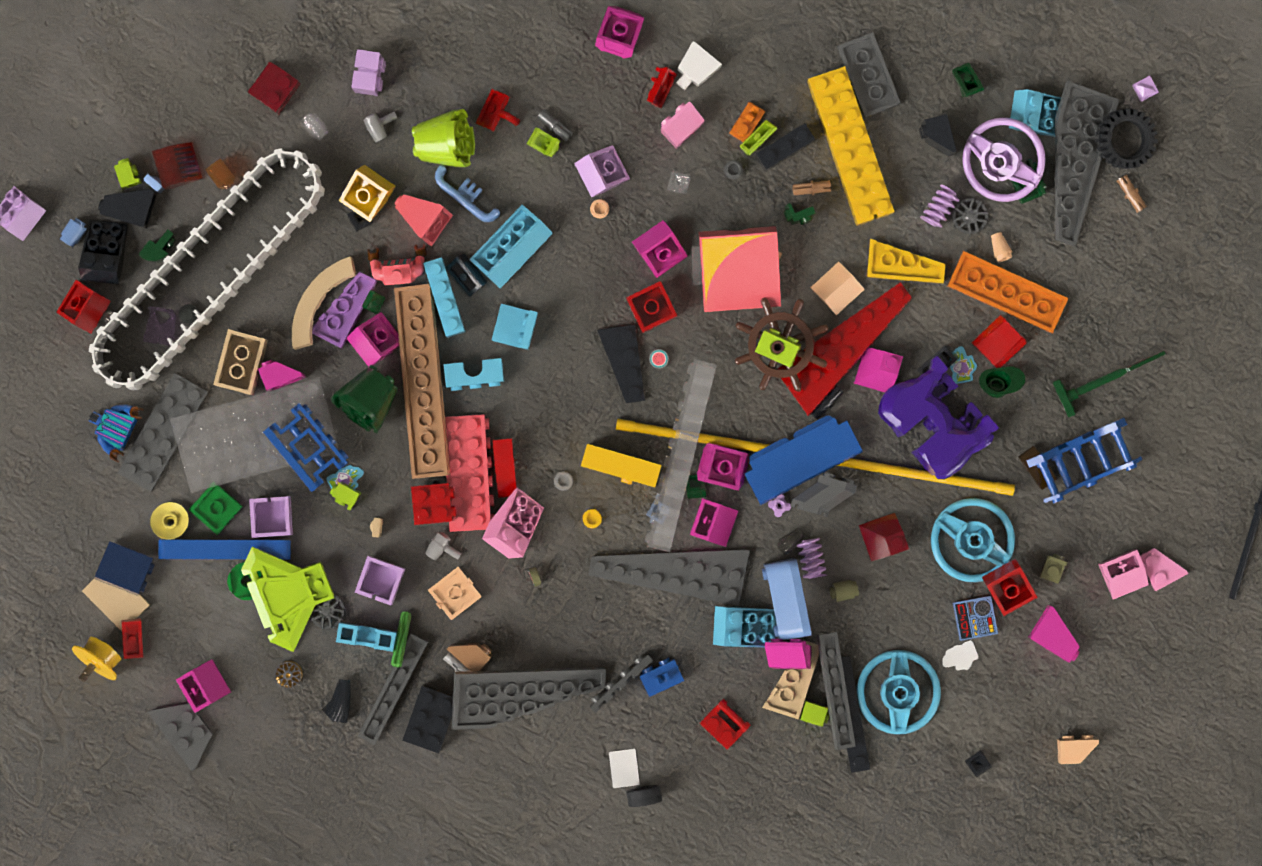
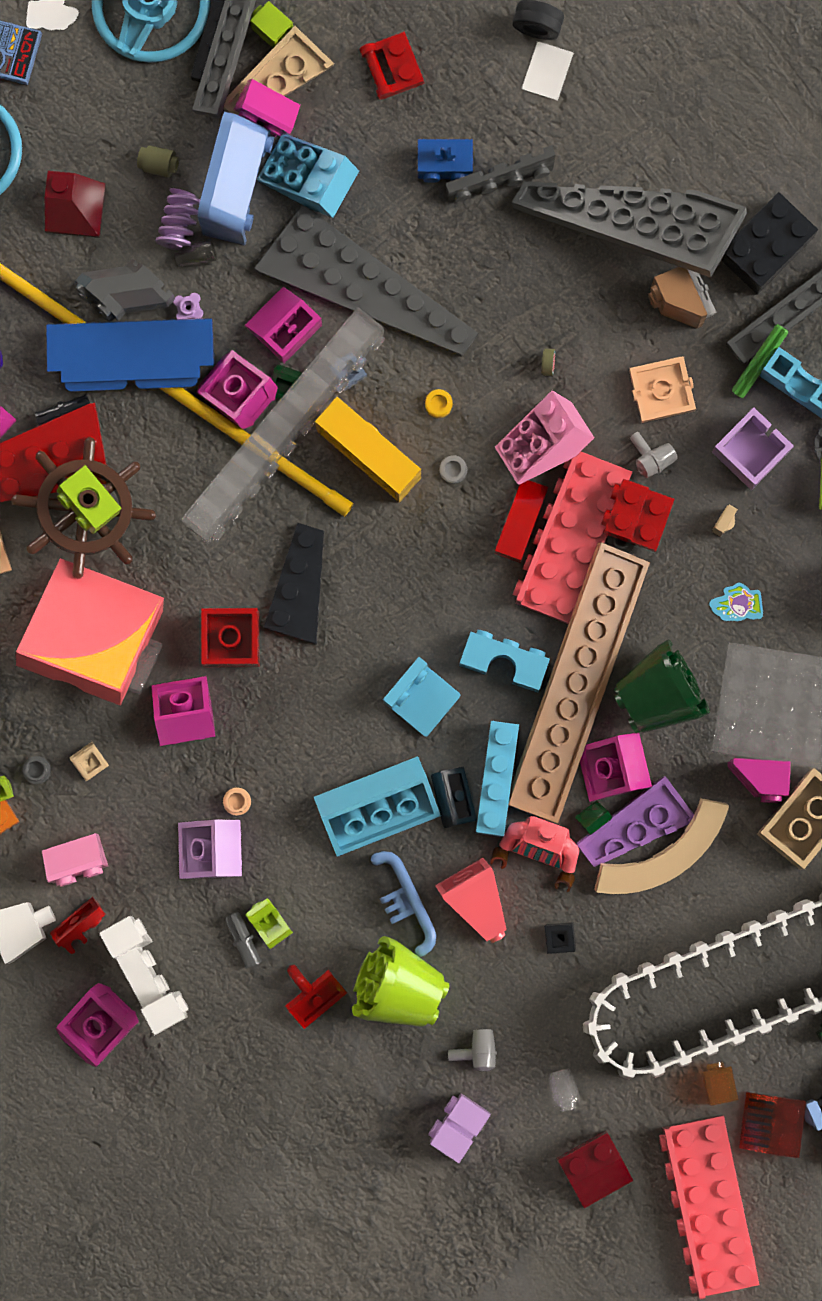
camera: 160 degrees left, 5 degrees down
(194, 98) = (709, 1207): none -> coral bracket
(295, 455) = (790, 660): blue fence -> none
(345, 494) = (747, 582): lime brick -> none
(367, 192) = (535, 966): yellow slope -> none
(583, 58) = (126, 944): none -> white wedge
(658, 359) = (253, 568): tile -> none
(678, 183) = (116, 786): clear tile -> none
(703, 190) = (89, 761): none -> tan tile

